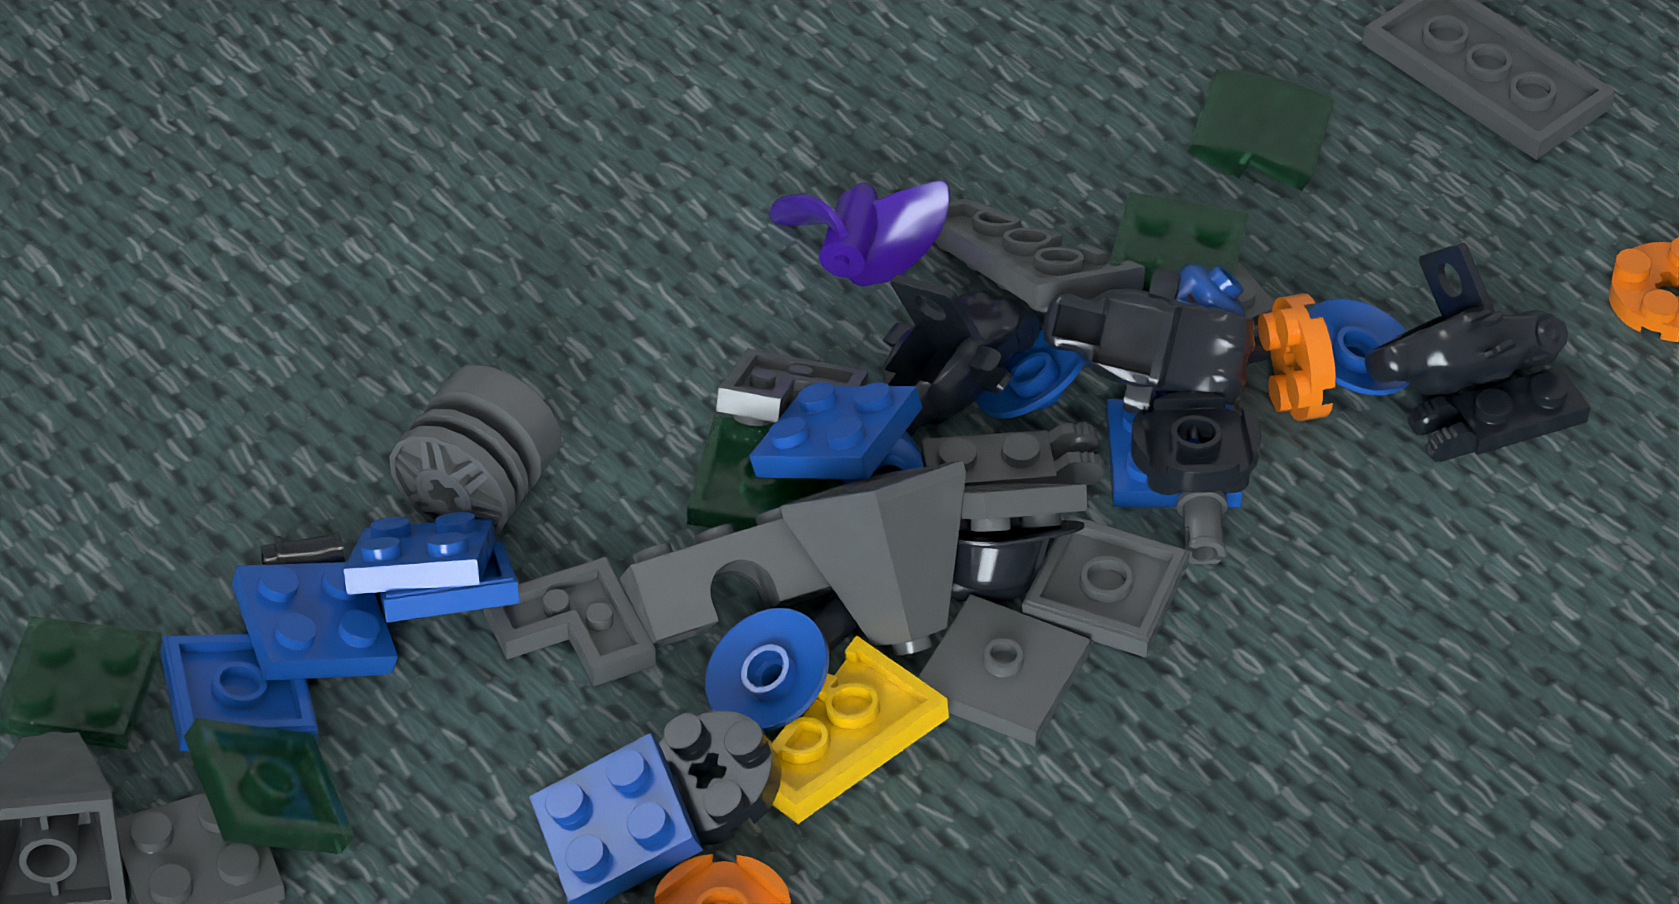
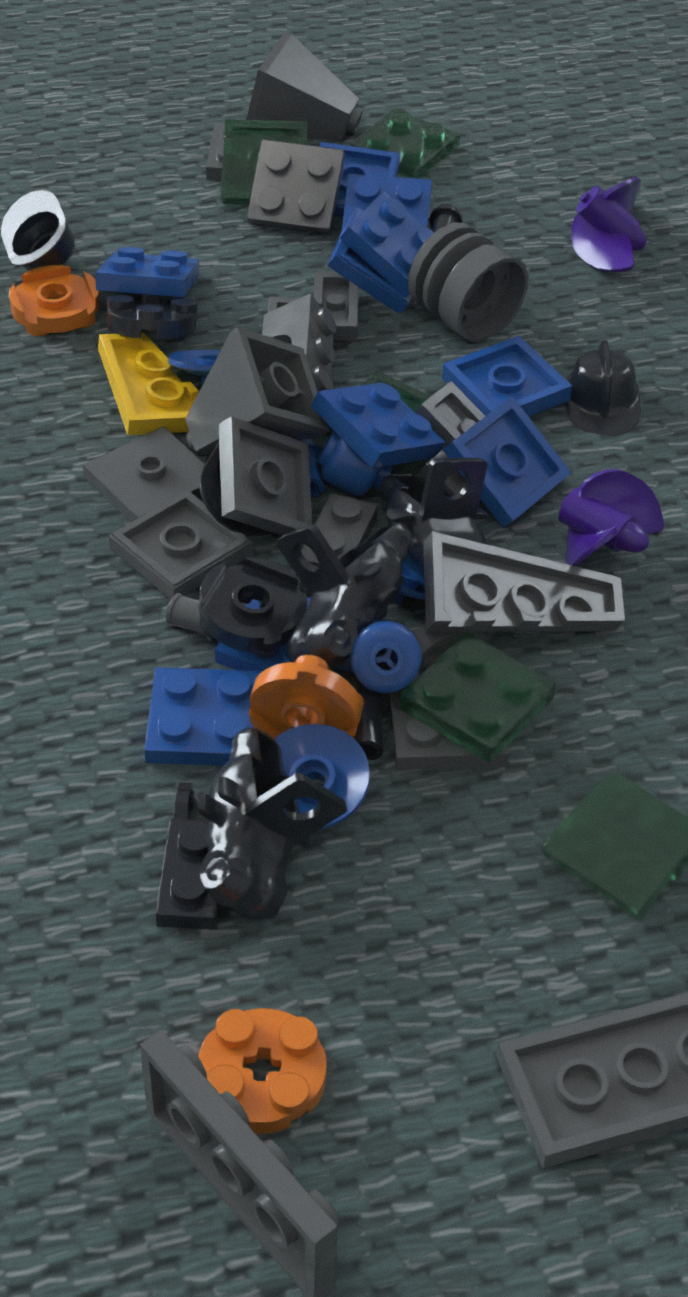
camera: 115 degrees right, 0 degrees up
(236, 391) = (605, 228): none -> dark purple piece
(313, 728) = (296, 187): none -> dark grey plate
(573, 317) = (604, 393): none -> black piece
(621, 395) = (507, 371): none -> blue plate
(810, 335) = (518, 459): none -> blue plate
(1330, 476) = (197, 714): none -> blue plate

